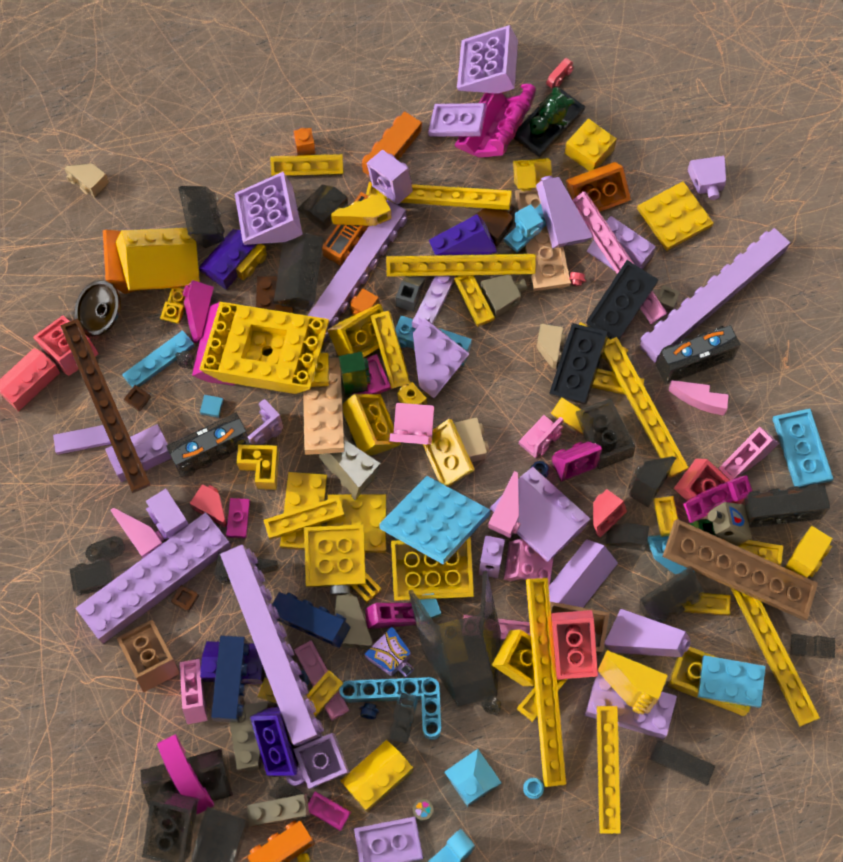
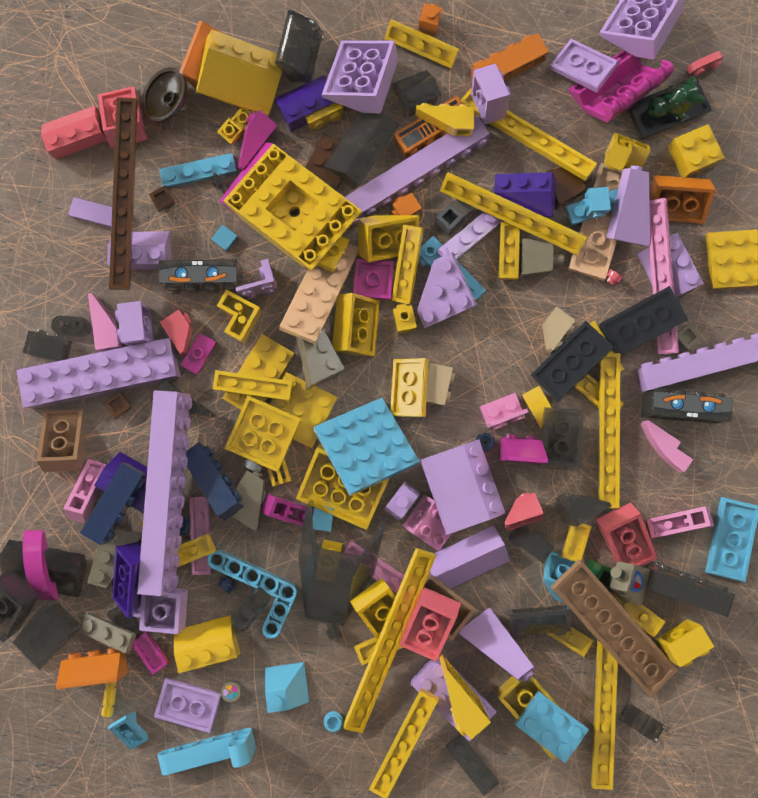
camera: 25 degrees right, 15 degrees up
(354, 373) = (360, 274): dark green brick -> none
(390, 654) = (269, 545): torso -> none
(413, 423) = (391, 347): bright pink bracket -> none
(506, 514) = (431, 476): bright pink slope -> none
(726, 492) = (629, 550): dark pink slope -> none

